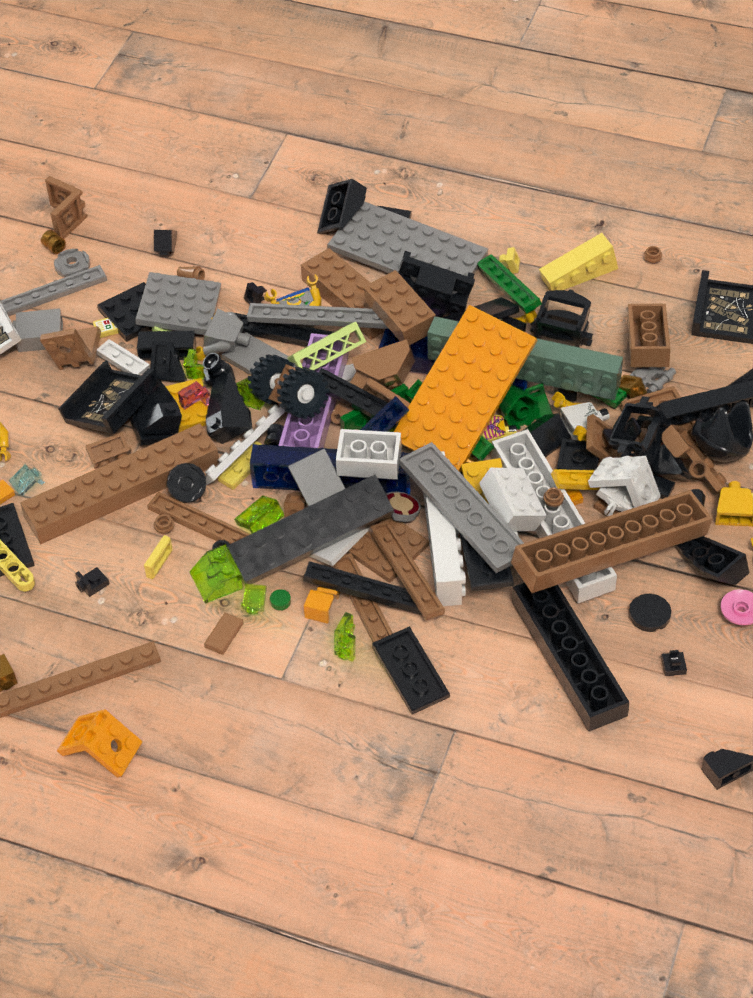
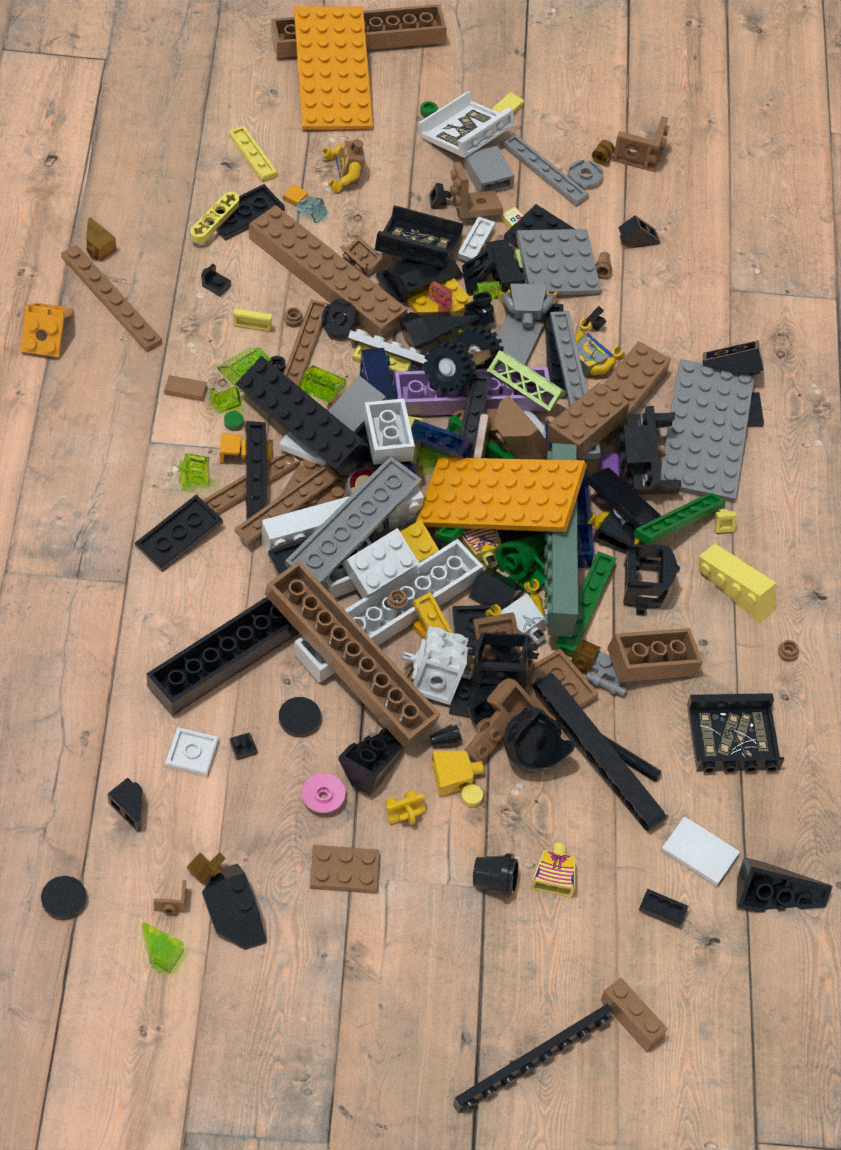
camera: 65 degrees right, 5 degrees up
(55, 376) = (438, 196): none -> black tile
(672, 707) = (192, 752): none -> white tile

